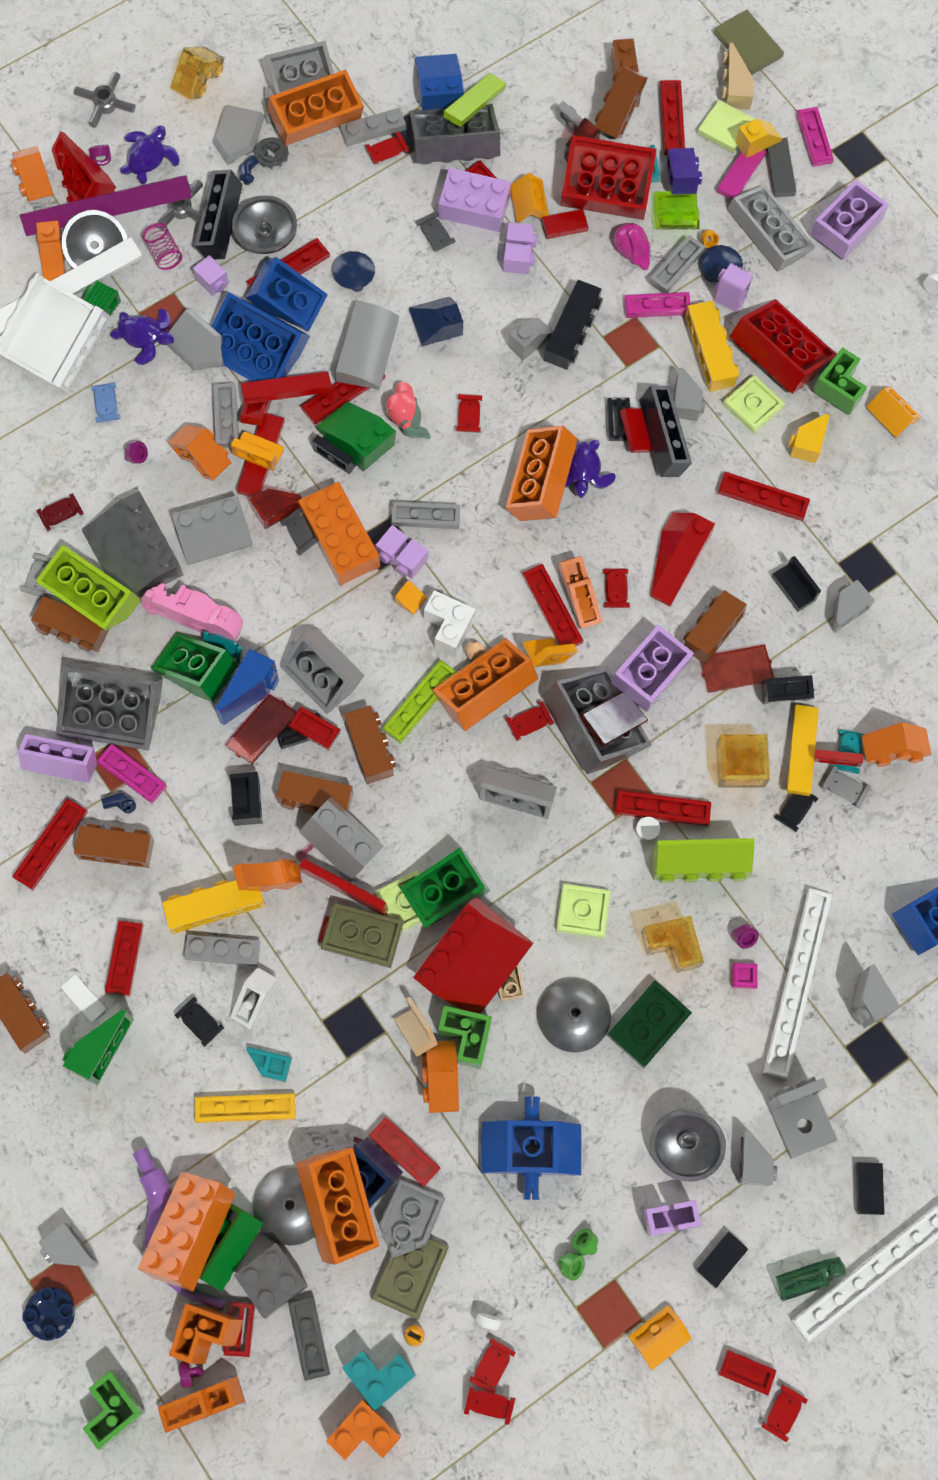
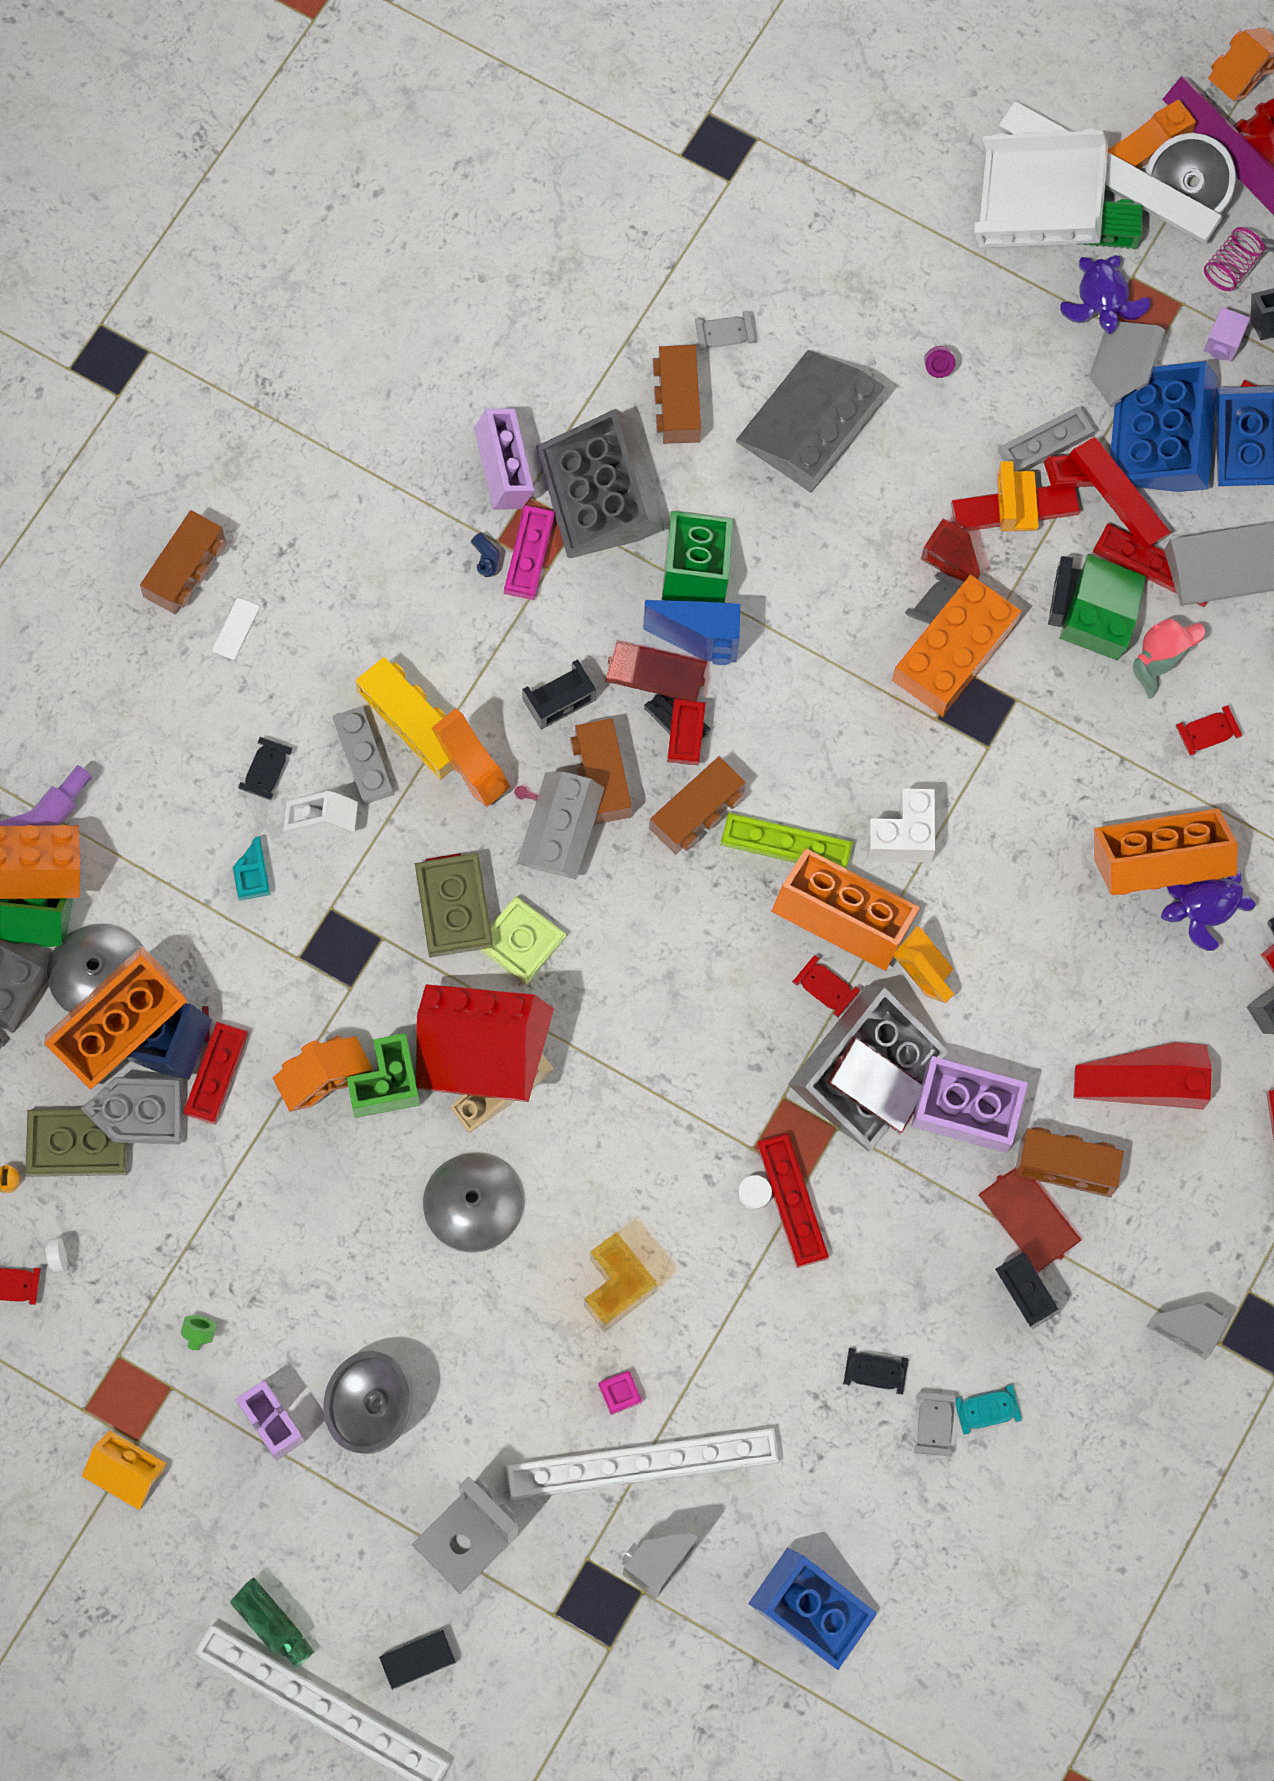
camera: 65 degrees right, 0 degrees up
(50, 844) = (400, 503): red tile -> none
(59, 511) = (819, 314): dark red piece -> none
(87, 589) = (729, 390): lime slope -> none
(96, 1050) = (174, 667): green slope -> none
(105, 402) = (990, 296): medium blue piece -> none
(114, 846) = (430, 573): dark orange brick -> none
(124, 958) = (302, 650): red tile -> none
(193, 611) = (766, 525): bright pink piece -> none
(201, 450) = (979, 426): orange brick -> none
(212, 530) = (883, 496): light grey slope -> none
(232, 647) = (740, 575): teal piece -> none
(245, 1108) = (187, 868): yellow tile -> none
(321, 670) = (767, 707): light grey slope -> none
(344, 887) = (501, 856): red tile -> none
(405, 556) = (971, 731): lavender piece -> none
(410, 597) = (916, 769): light orange slope -> none
(416, 1029) = (365, 1017): tan panel -> none
(426, 515) = (1037, 739): light grey plate -> none
(444, 888) = (558, 974): green slope -> none
(474, 650) = (885, 877): light nougat hinge -> none
(505, 1150) = (292, 1248): blue slope -> none
(518, 792) = (723, 1009): light grey slope -> none
(552, 606) = (994, 949): red tile -> none
(572, 1266) = (163, 1327): bright green tile -> none
(580, 591) = (1030, 972): orange slope -> none
(583, 911) = (610, 1157): yellowish green tile -> none
(616, 588) = (1063, 1018): red piece -> none
(649, 1024) = (501, 1297): dark green plate -> none
(703, 859) = (742, 1274): lime slope -> none
(722, 1260) = (249, 1507): black tile -> none
(742, 760) = (900, 1270): clear yellow brick -> none
(745, 936) = (670, 1371): magenta tile -> none
(747, 1372) = (126, 1594): red tile -> none
(755, 1163) = (384, 1499): light grey slope -> none
(784, 1413) = (96, 1658): red piece -> none
(796, 584) = (1183, 1245): black panel -> none
(802, 750) = (956, 1345): yellow tile -> none
(838, 758) = (965, 1393): red tile -> none
(896, 742) = (1021, 1463): orange brick -> none

